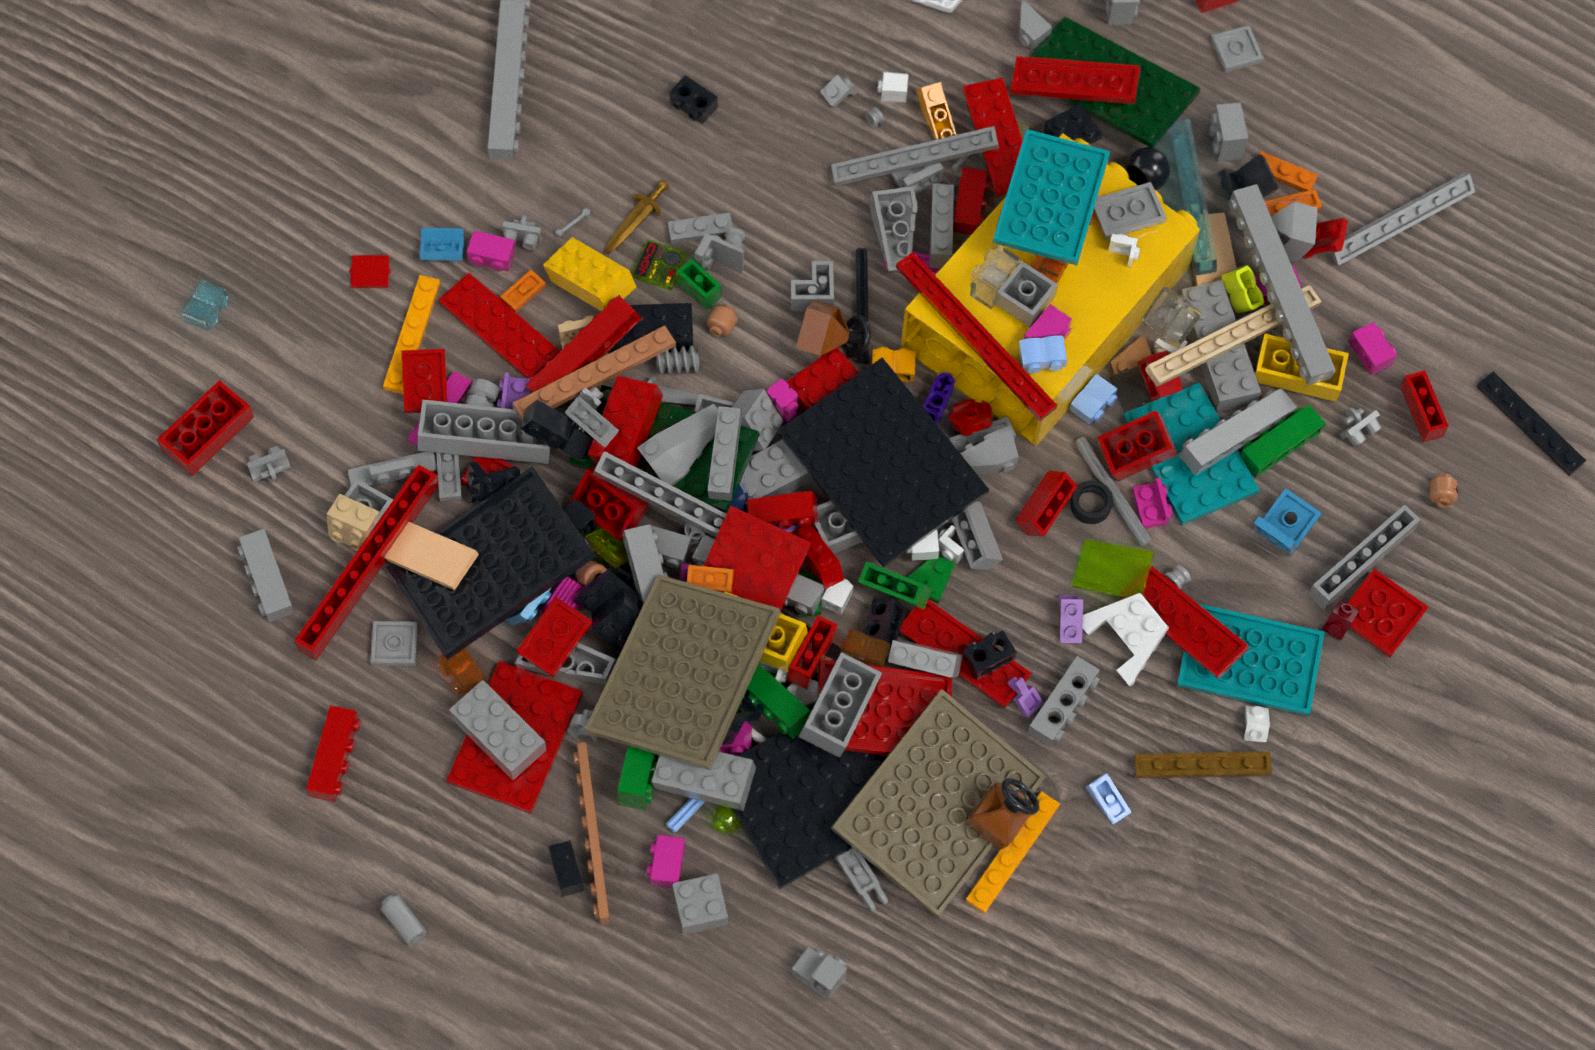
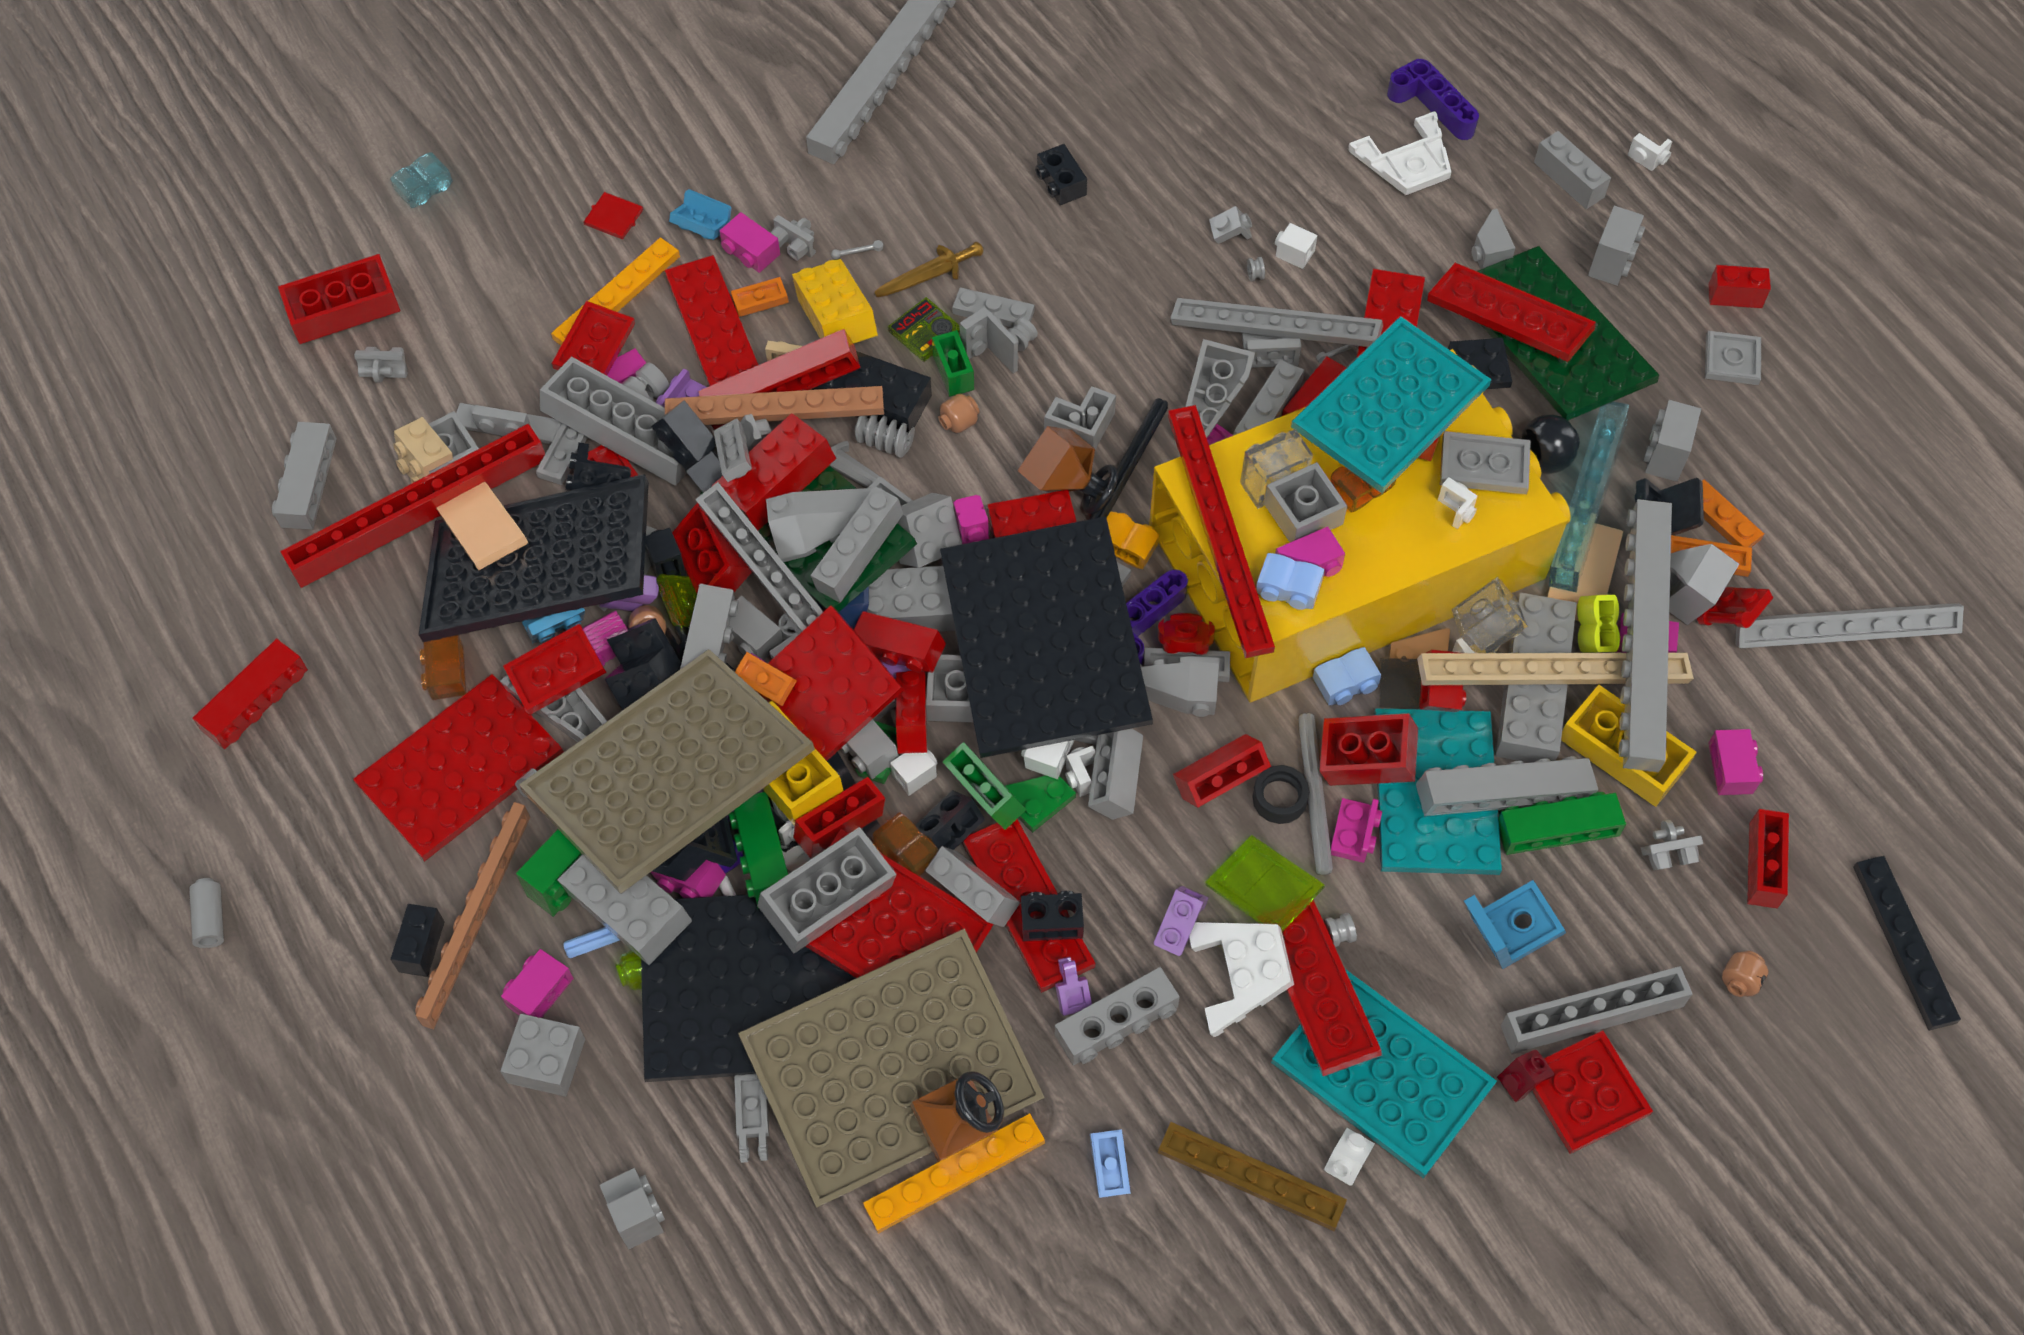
camera: 30 degrees right, 5 degrees down
(394, 643) = (392, 606): light grey tile -> none
(497, 729) = (434, 746): light grey brick -> none
(936, 110) = (1331, 283): light orange slope -> none

